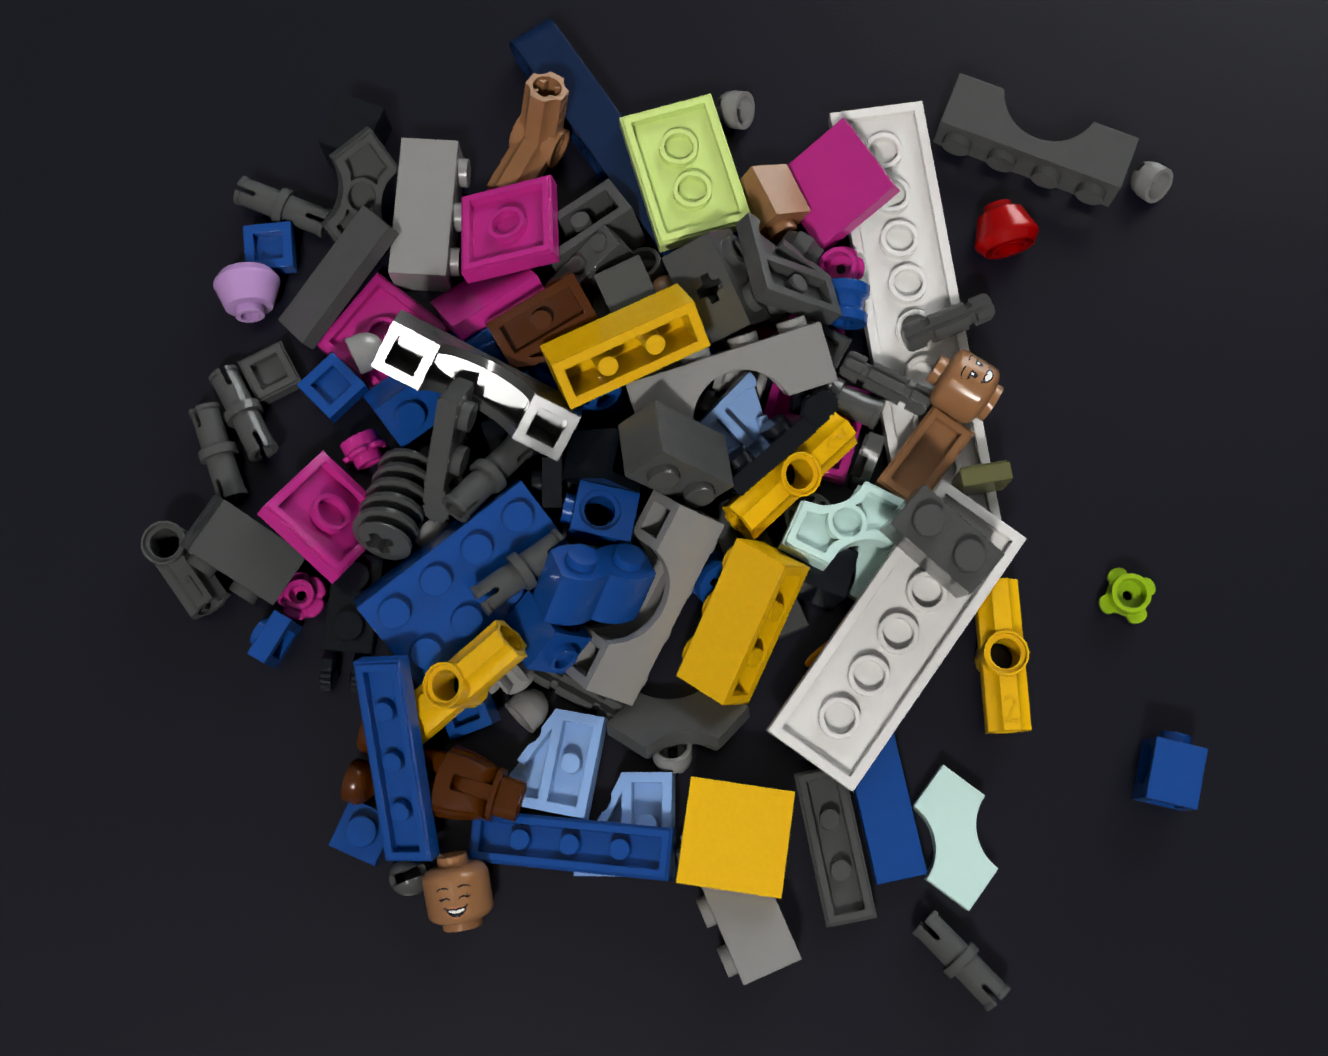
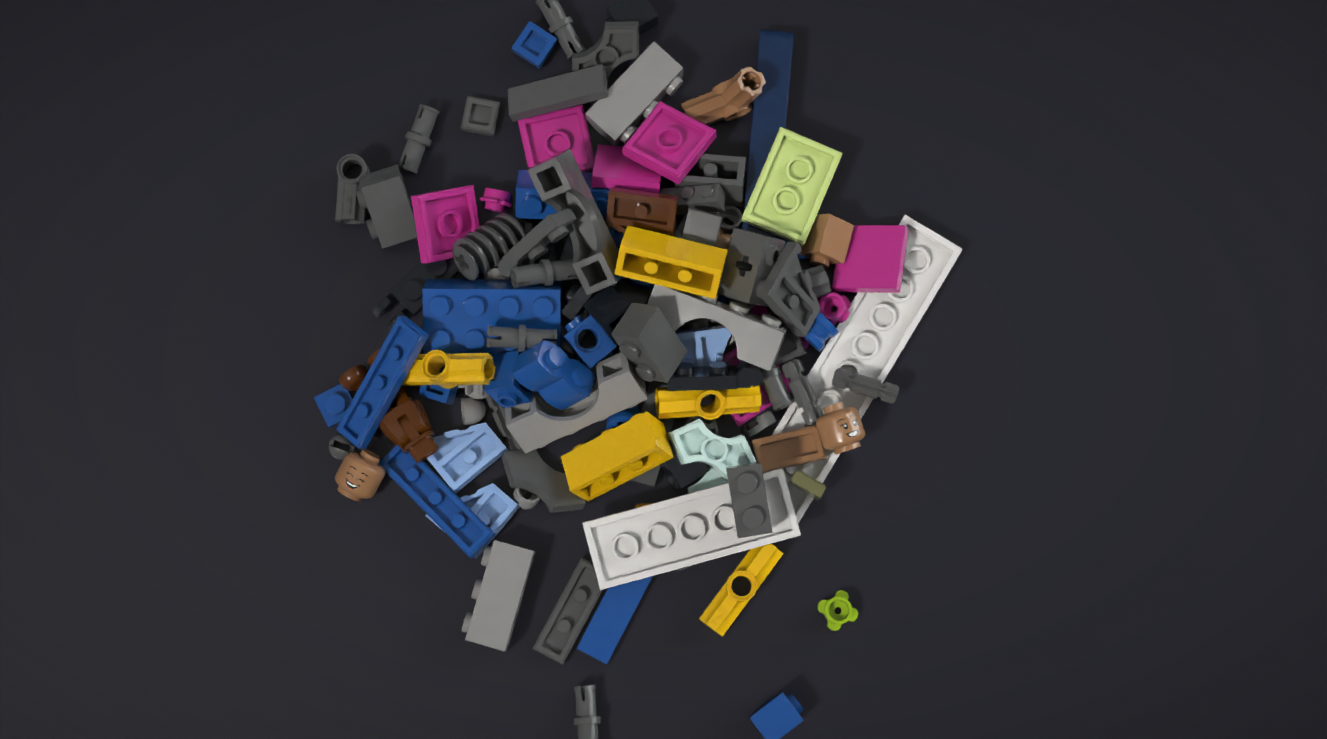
camera: 35 degrees right, 5 degrees up
(243, 413) = (448, 127): dark grey pin -> none
(247, 290) = (503, 60): lavender cone -> none
(273, 639) = (368, 265): blue plate -> none
(314, 600) = (405, 262): dark pink plate -> none
(333, 387) = (506, 153): blue tile -> none
(363, 349) = (539, 147): light grey hinge -> none
(735, 837) = (521, 563): yellow tile -> none
(736, 109) = (856, 176): light grey hinge -> none
(957, 862) = (628, 673): light aqua tile -> none
(981, 127) = (1025, 360): dark grey arch -> none
(1004, 230) = (944, 359): red cone -> none
(1151, 181) = (1053, 398): light grey hinge -> none

